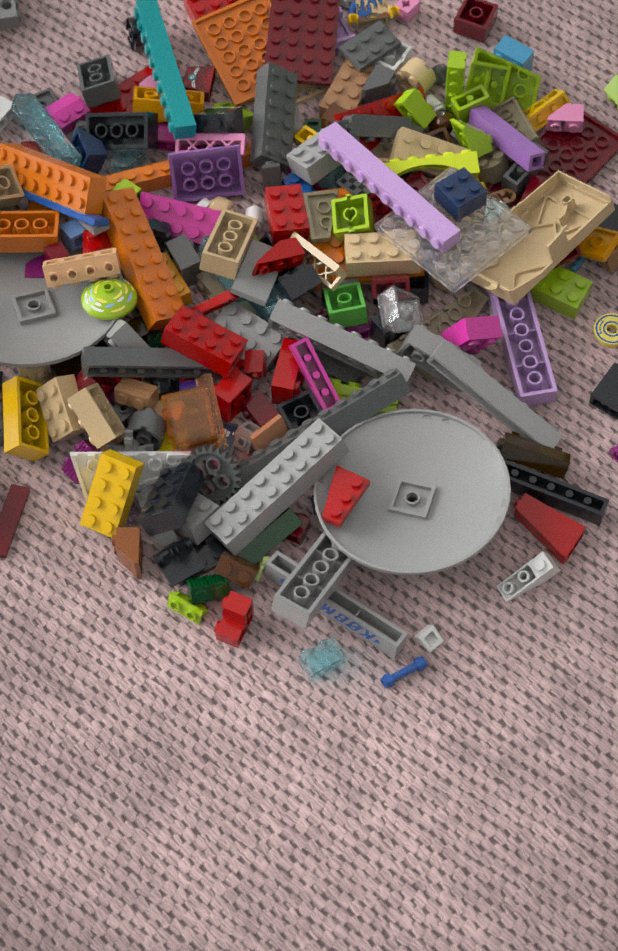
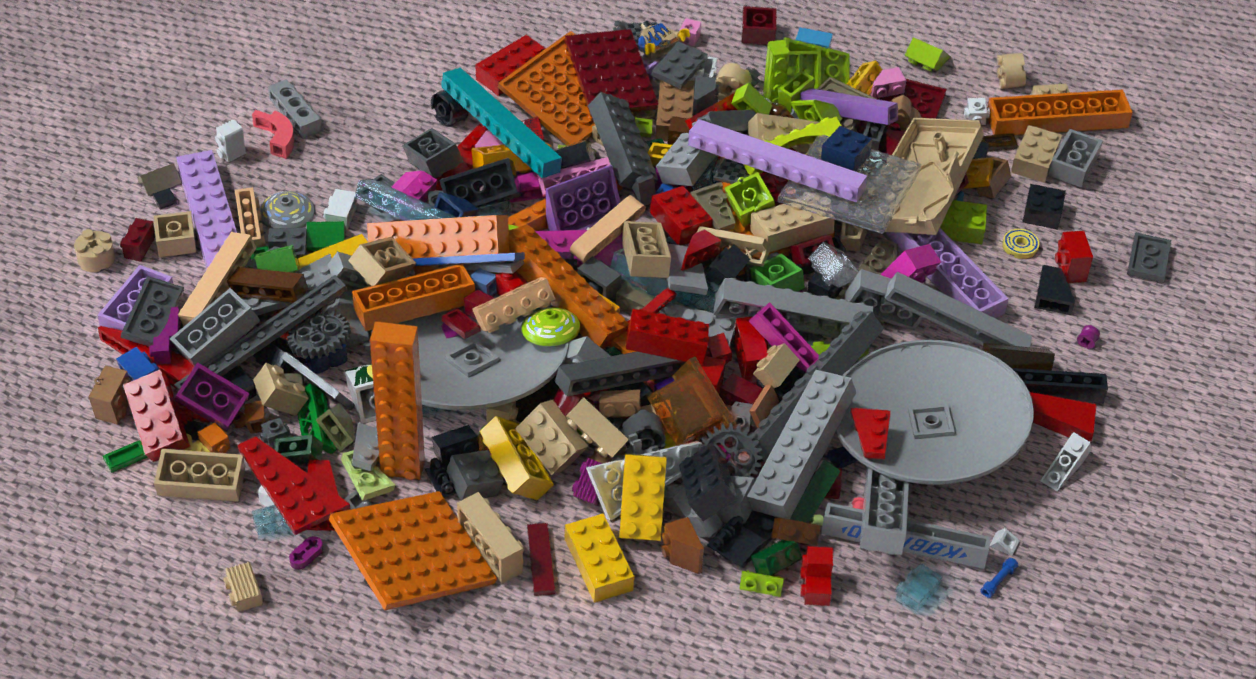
camera: 25 degrees left, 15 degrees down
(33, 270) = (461, 323): none -> dark red tile
(55, 537) = (599, 558): none -> yellow brick
(208, 210) = (607, 229): none -> light nougat beam
(293, 399) = (776, 365): none -> tan brick
(309, 101) = (644, 126): none -> lime plate
(560, 158) = (905, 112): none -> medium nougat brick

